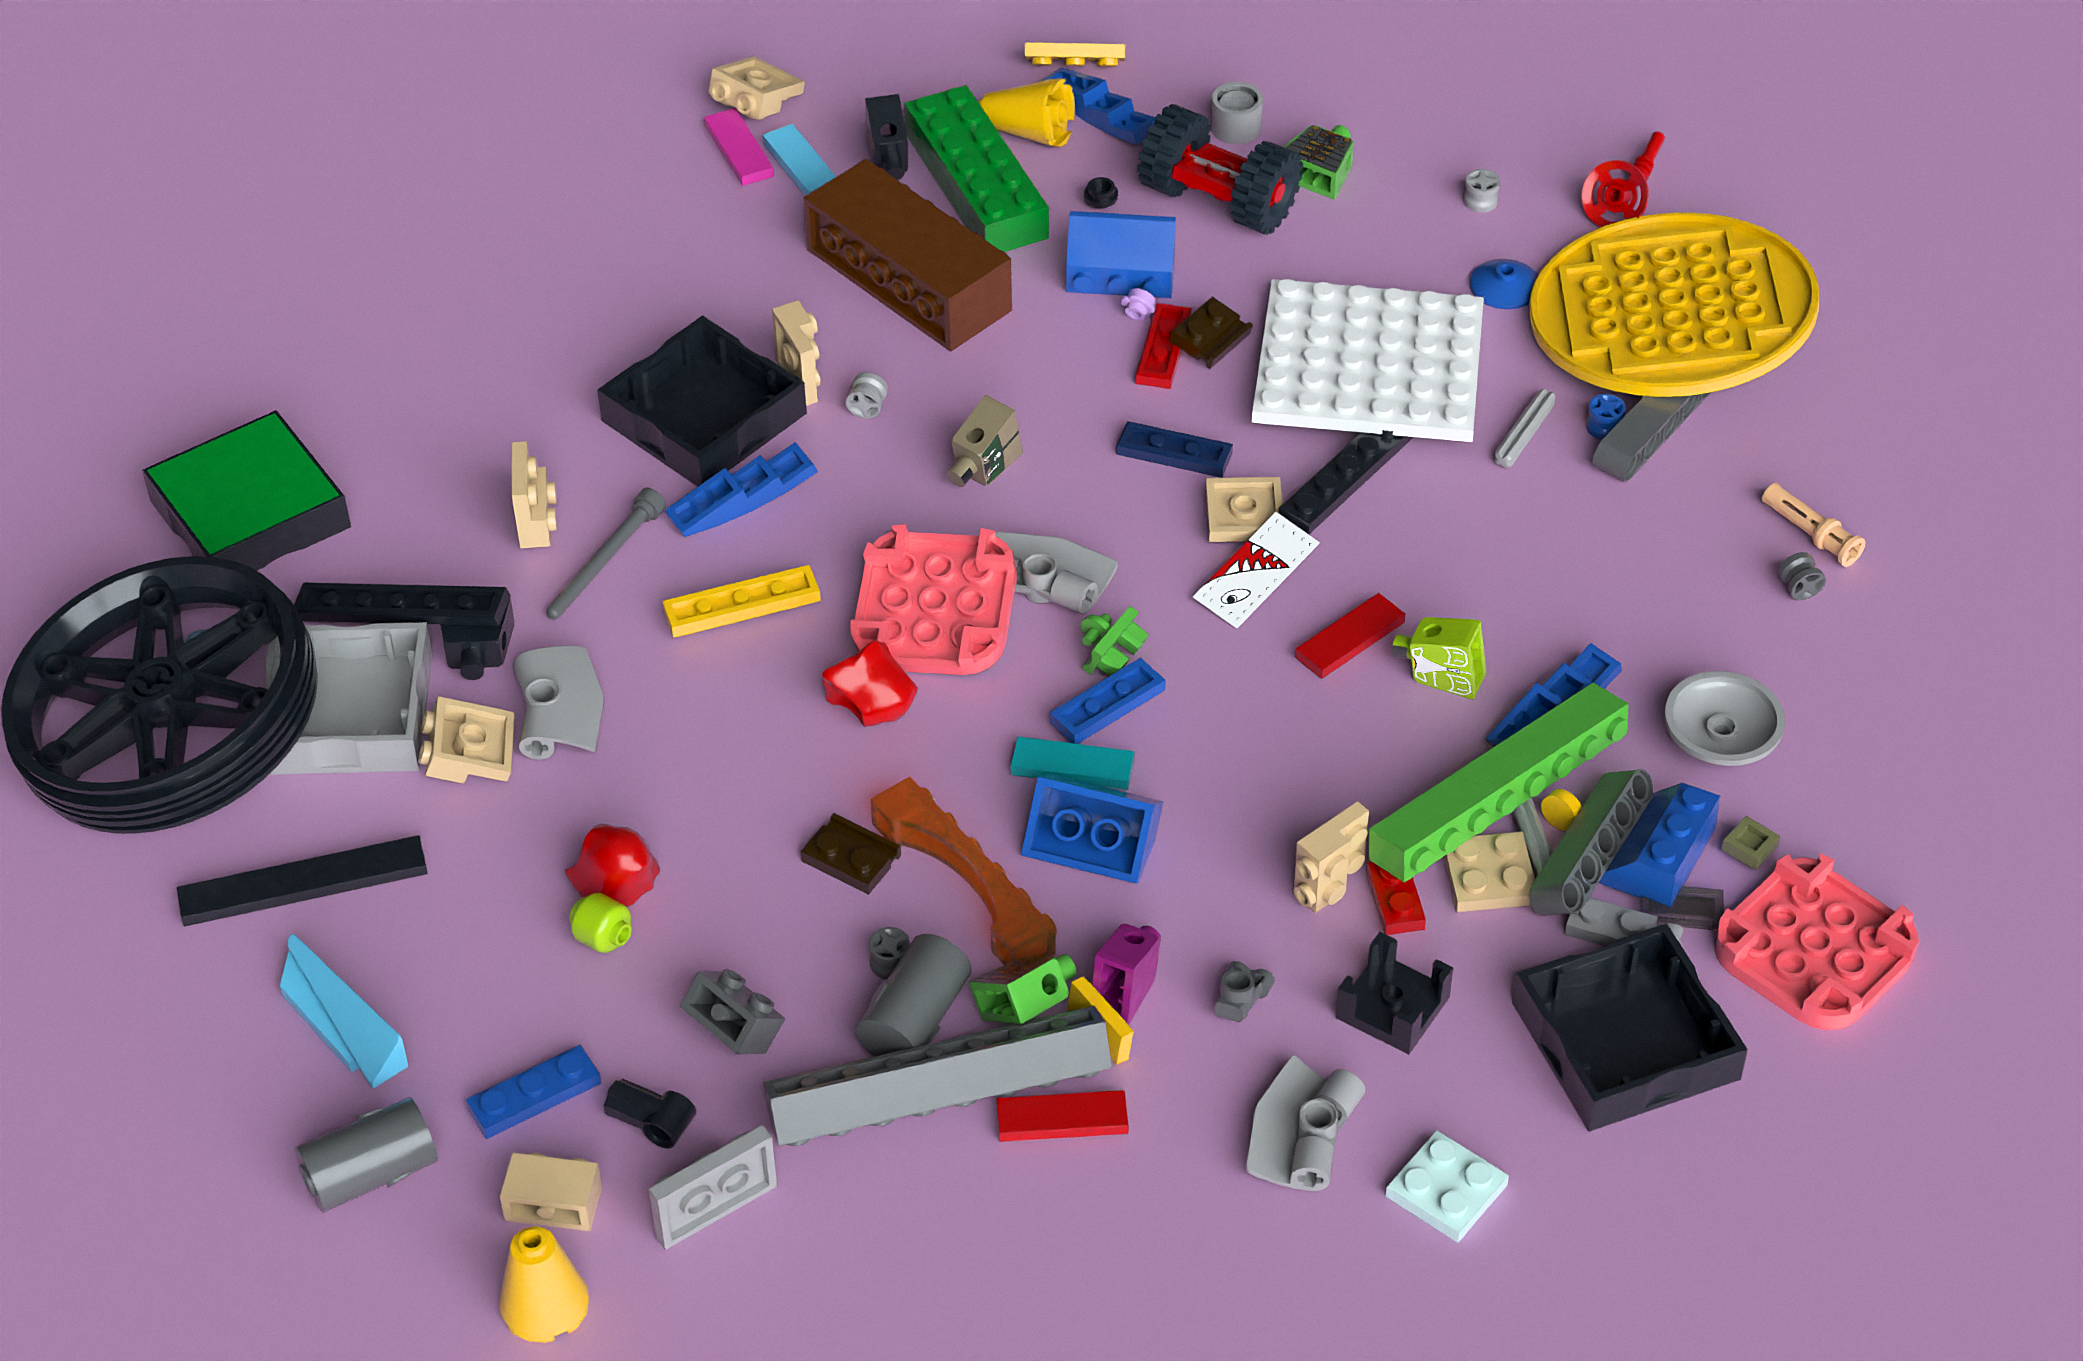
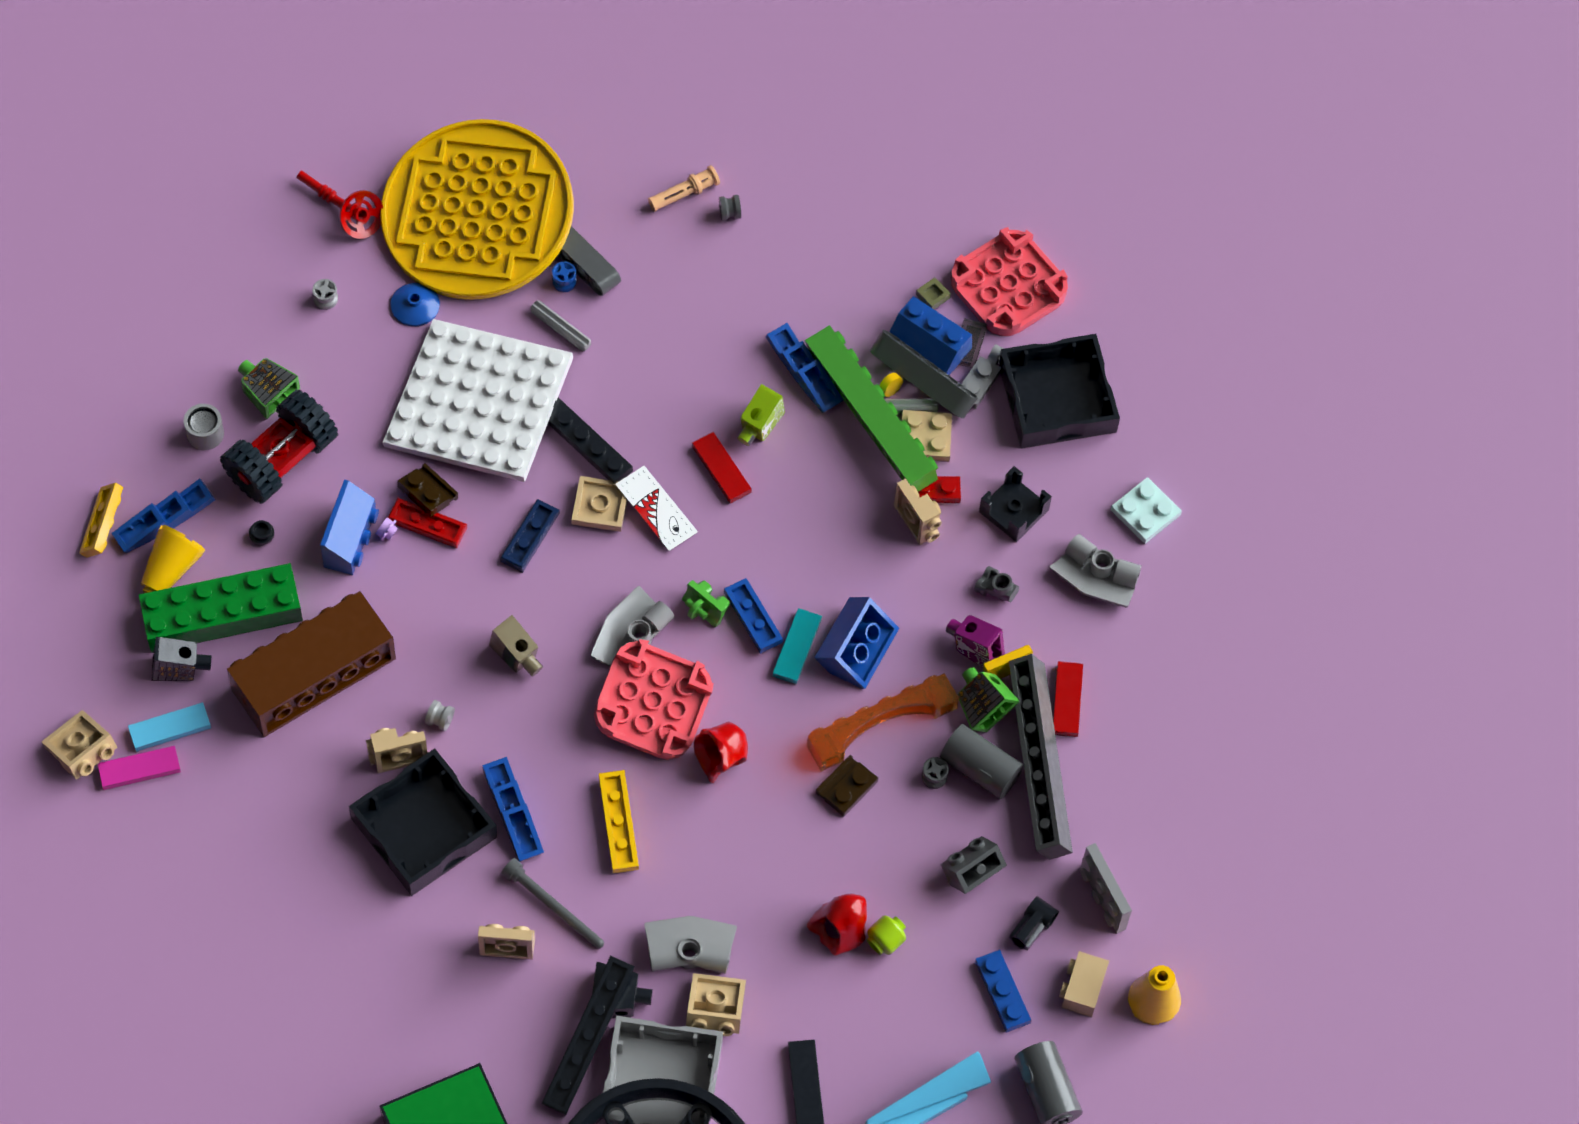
camera: 85 degrees left, 15 degrees up
(1724, 718) = (846, 268): light grey dish -> none

